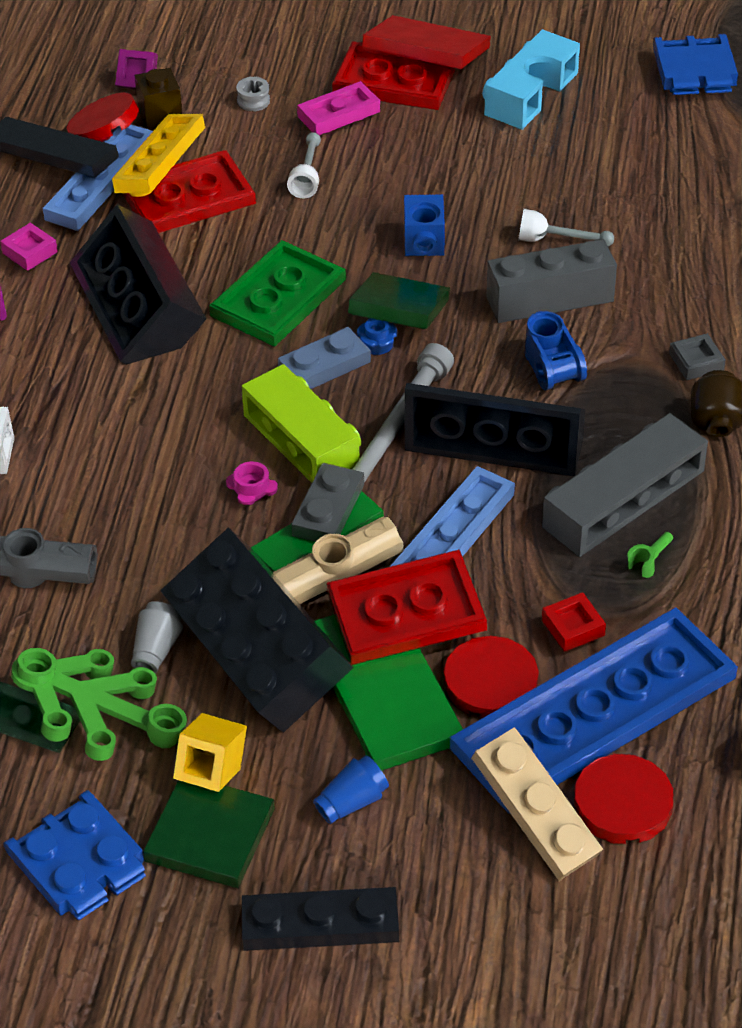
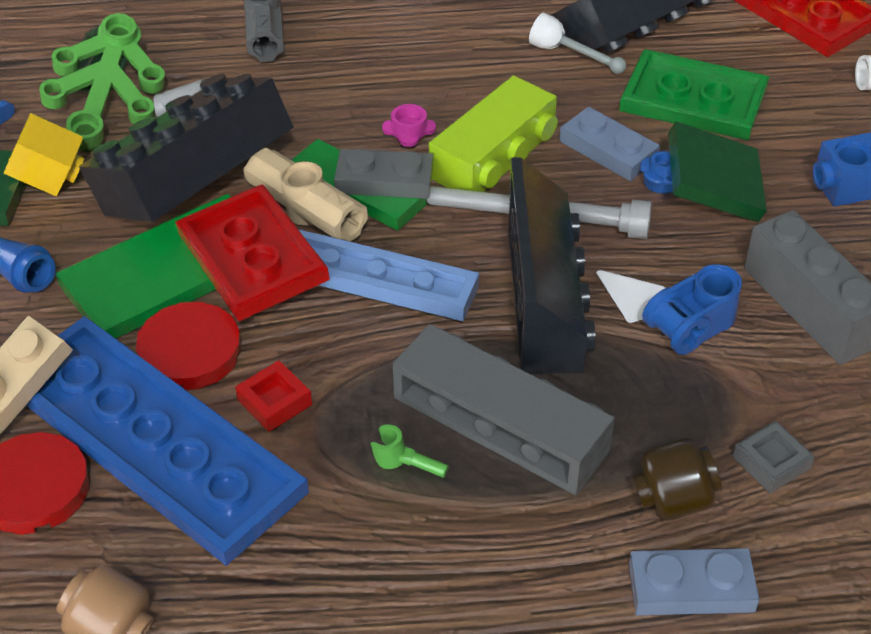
camera: 75 degrees right, 0 degrees up
(158, 360) = (549, 34): none -> hinge
(515, 385) = (629, 293): none -> white sticker

